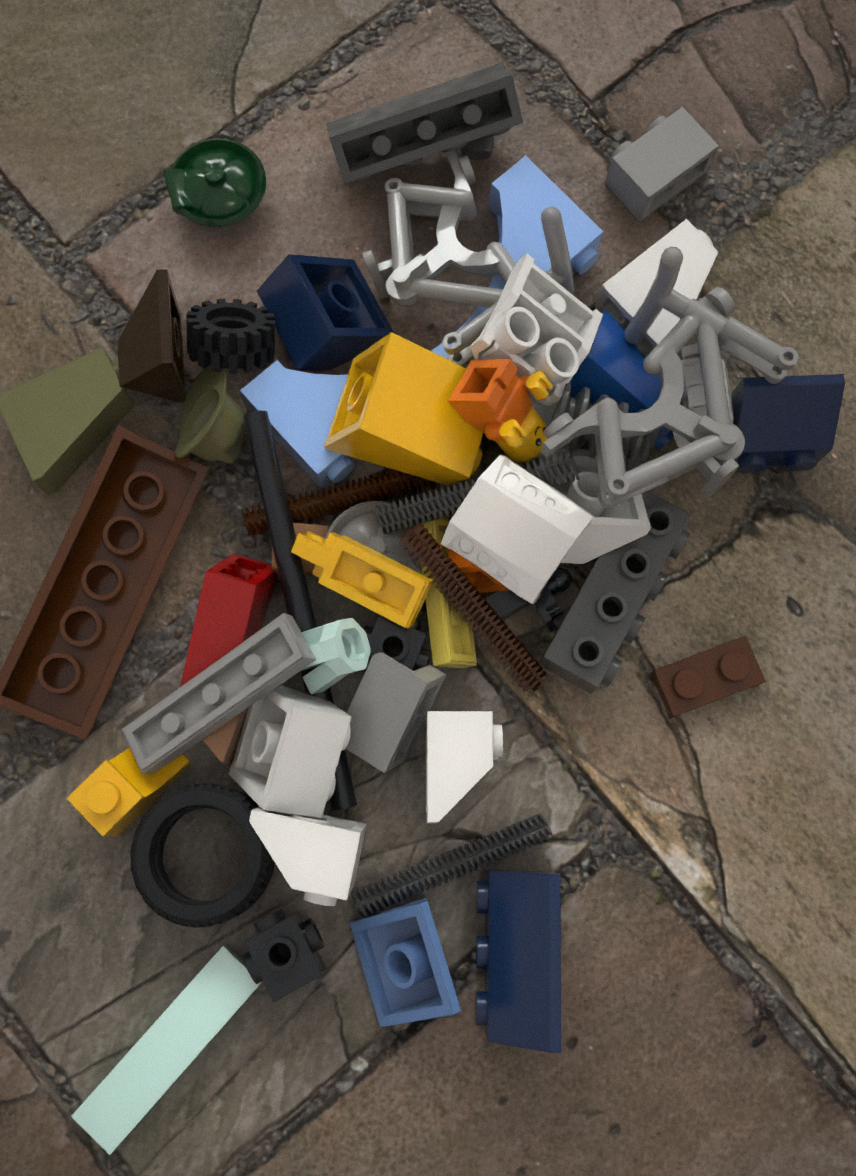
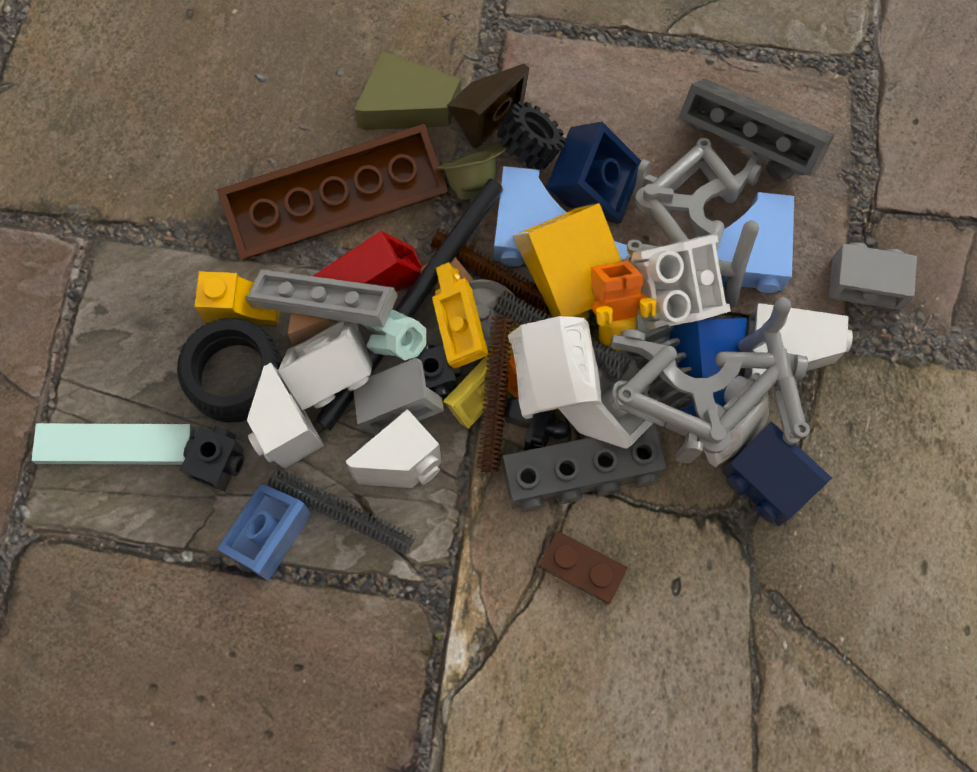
camera: 50 degrees right, 5 degrees down
(216, 182) = (613, 54): dark green piece -> none
(520, 959) = (319, 588): dark blue slope -> none

